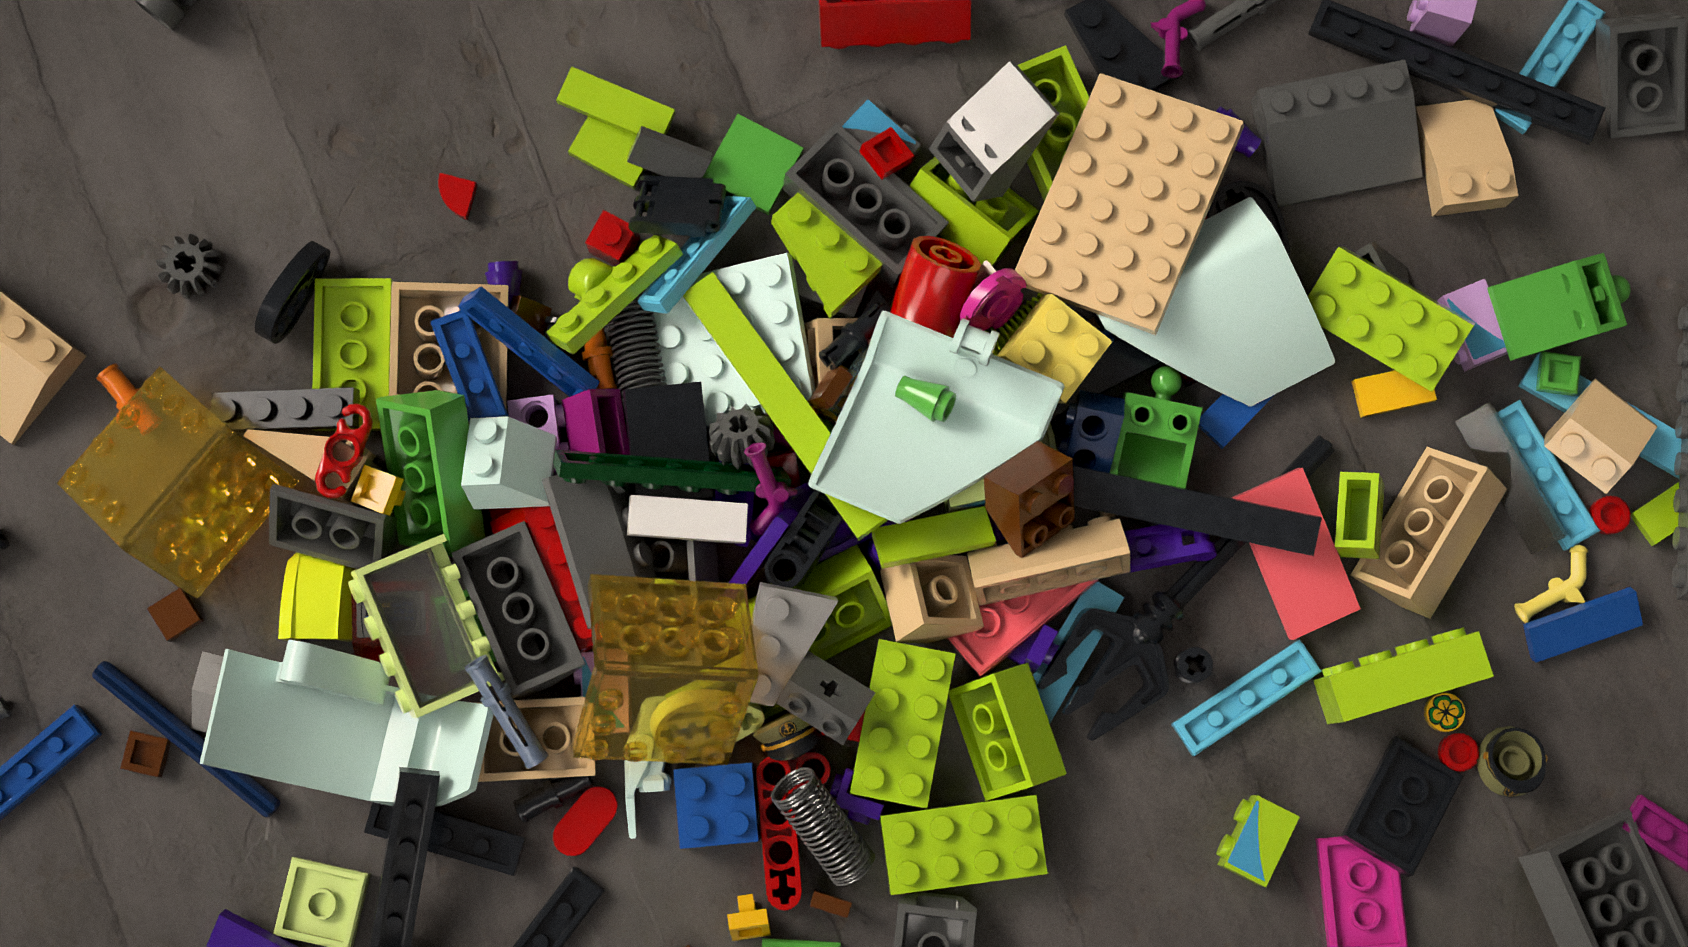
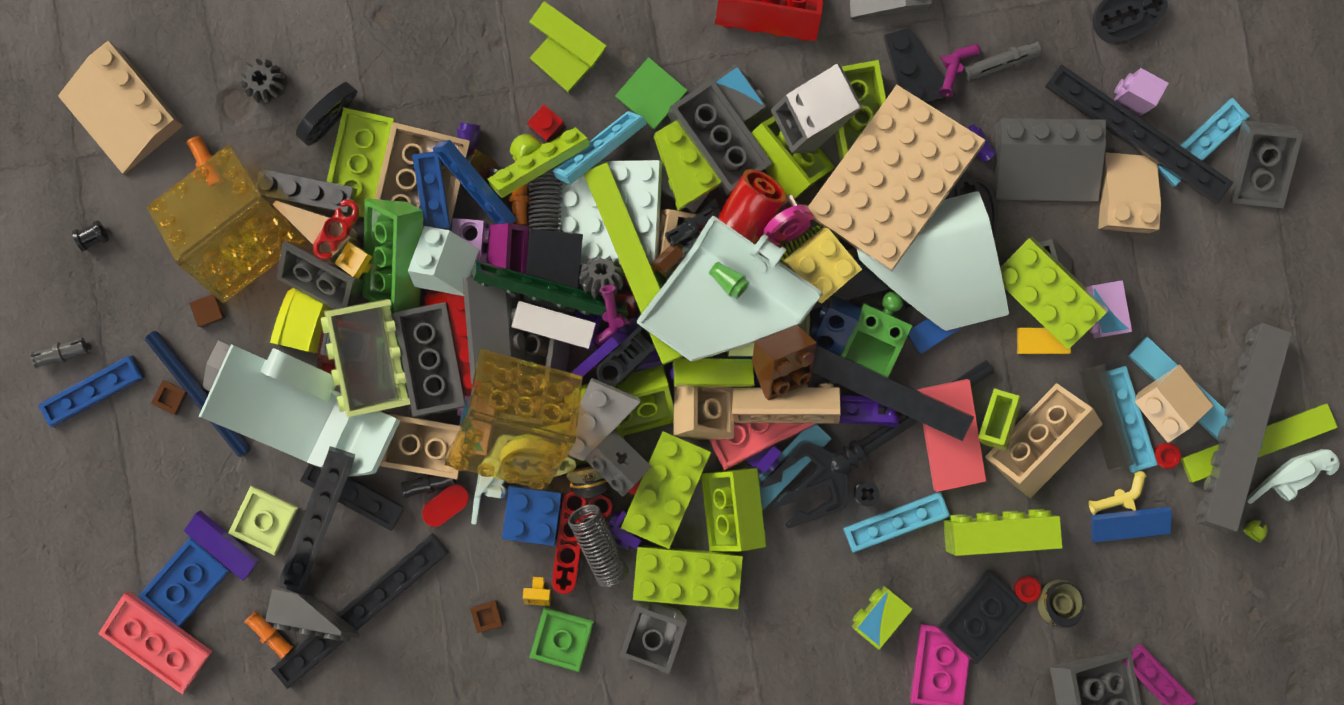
camera: 15 degrees right, 5 degrees up
(457, 194) = (450, 70): red tile -> none
(481, 672) = (417, 452): sand blue pin -> none
(668, 155) = (596, 77): dark grey tile -> none
(678, 206) = (594, 112): black plate -> none
(830, 903) = (593, 595): reddish brown tile -> none
(886, 153) = (741, 107): red tile -> none
(1444, 712) = (1025, 562): tile -> none
(1558, 373) = (1156, 354): bright green tile -> none
(1559, 305) = (1168, 310): bright green slope -> none

